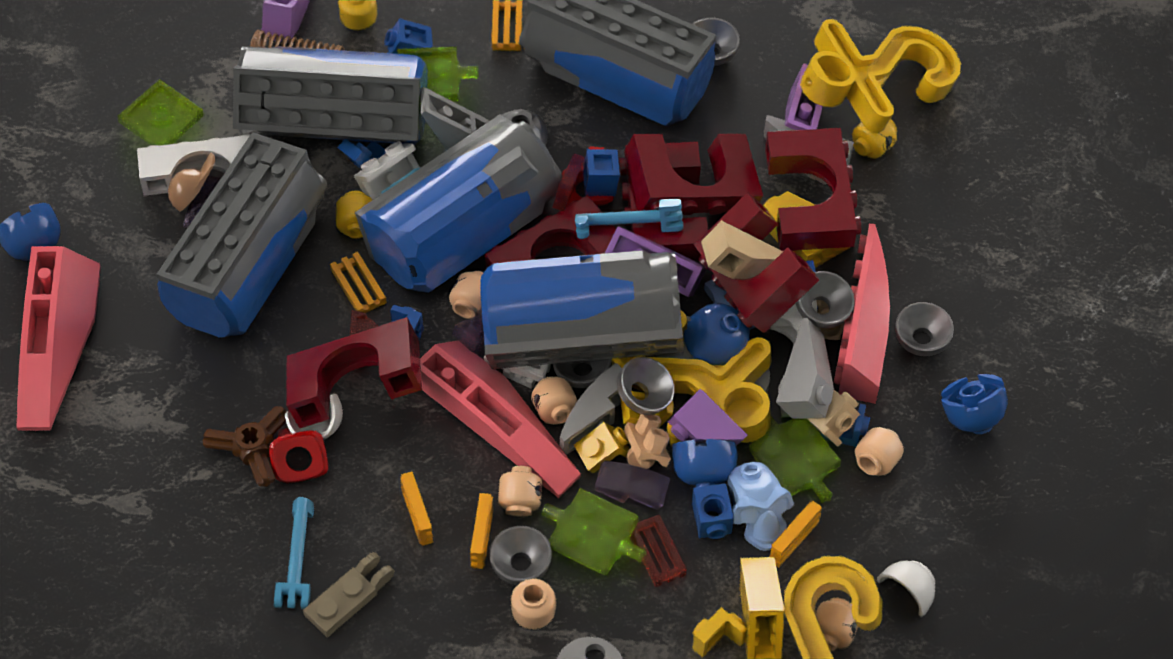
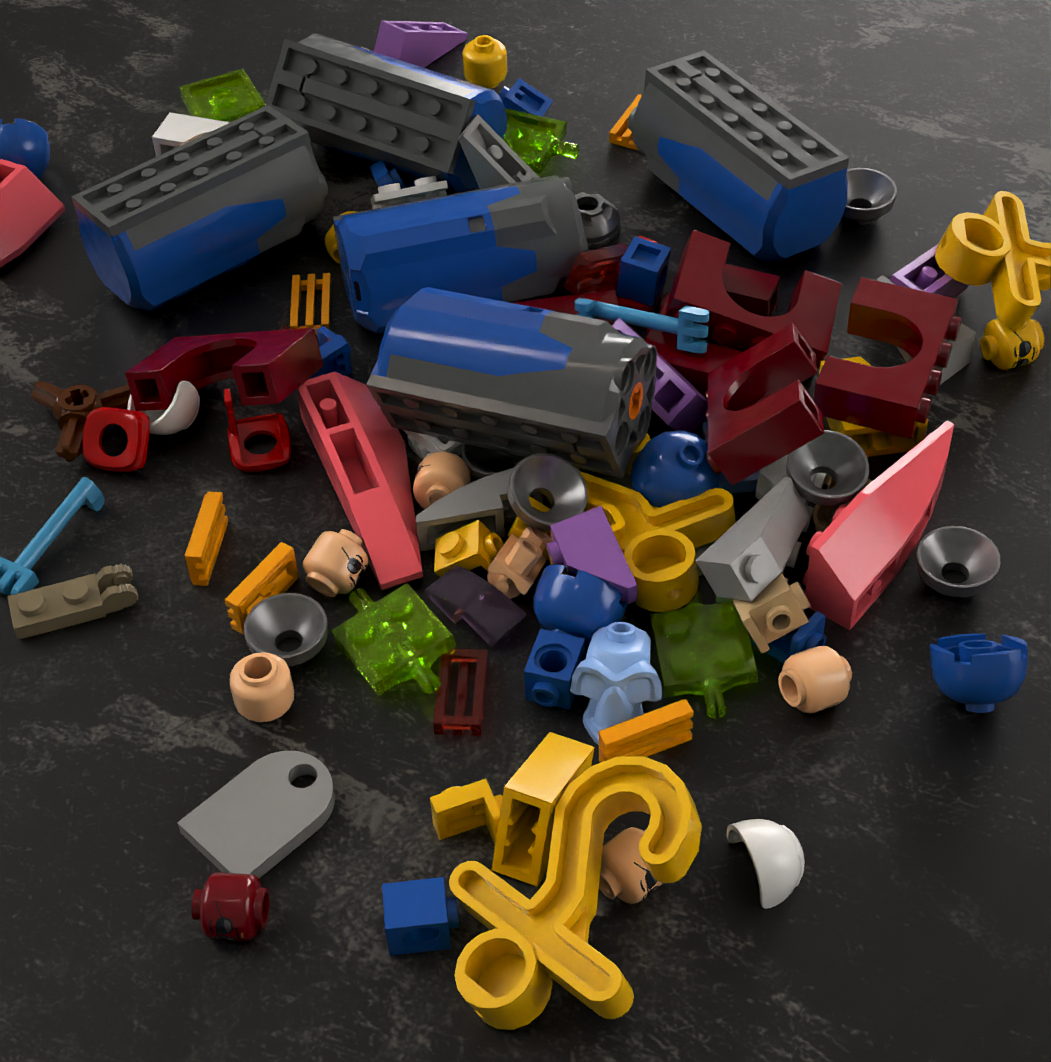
camera: 30 degrees right, 10 degrees down
(380, 407) = (243, 429): none -> red piece
(737, 252) = (735, 374): tan slope -> none

